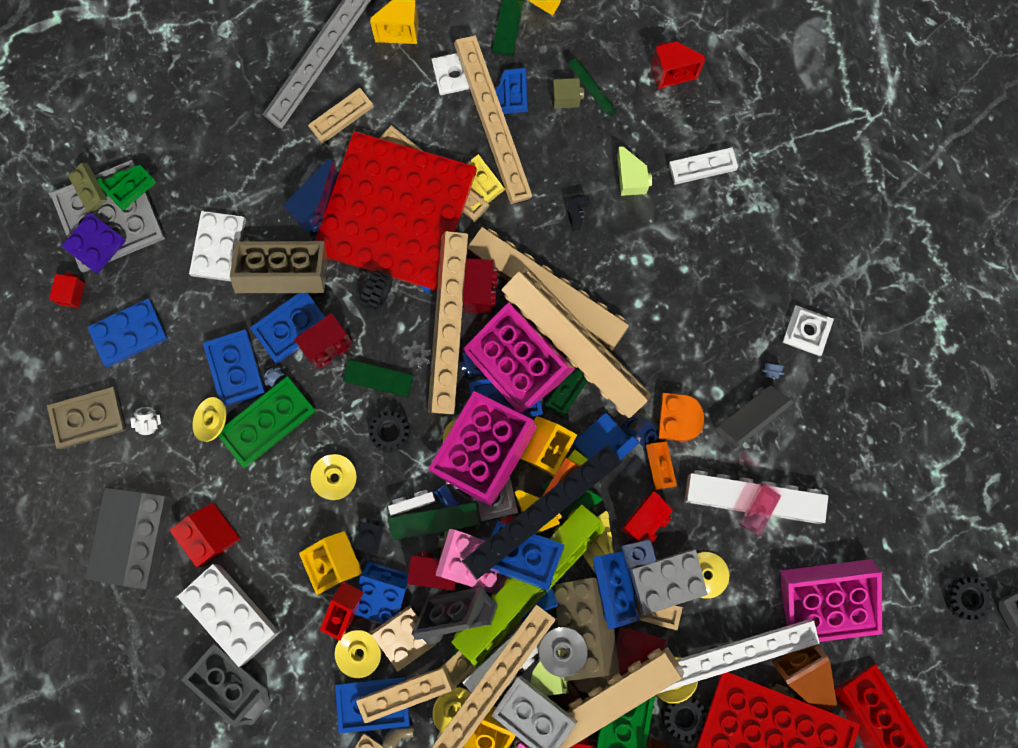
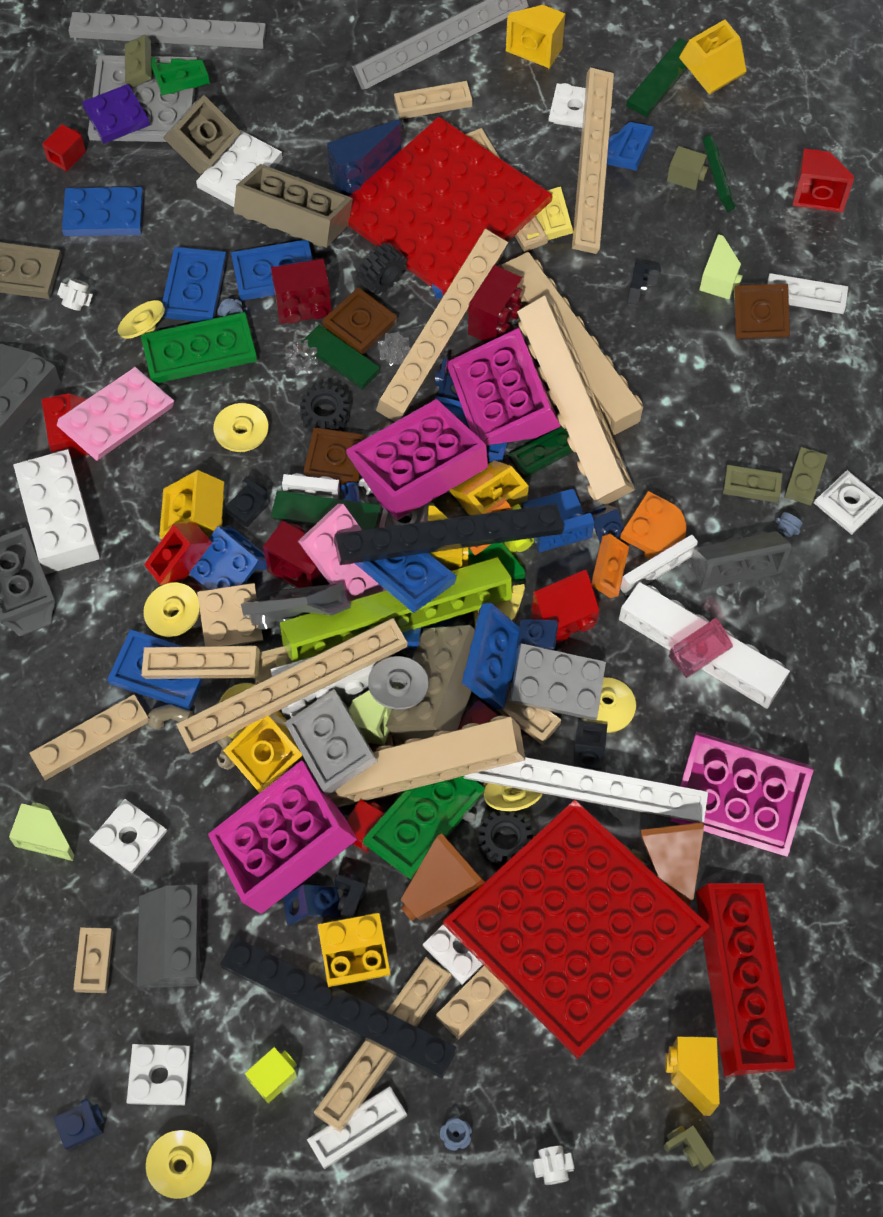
camera: 25 degrees right, 15 degrees down
(93, 141) = (168, 30): none -> light grey plate
(174, 234) = (202, 134): none -> dark tan brick
(232, 513) = (115, 413): none -> bright pink plate
(350, 395) = (304, 350): none -> clear gear
(378, 342) = (359, 321): none -> reddish brown plate
(412, 467) = (329, 457): none -> reddish brown plate
(678, 199) = (761, 312): none -> reddish brown plate
(696, 448) = (659, 565): none -> white tile
(710, 614) = (590, 744): none -> black bracket
(733, 348) = (752, 483): none -> olive plate
(767, 322) = (806, 476): none -> olive plate

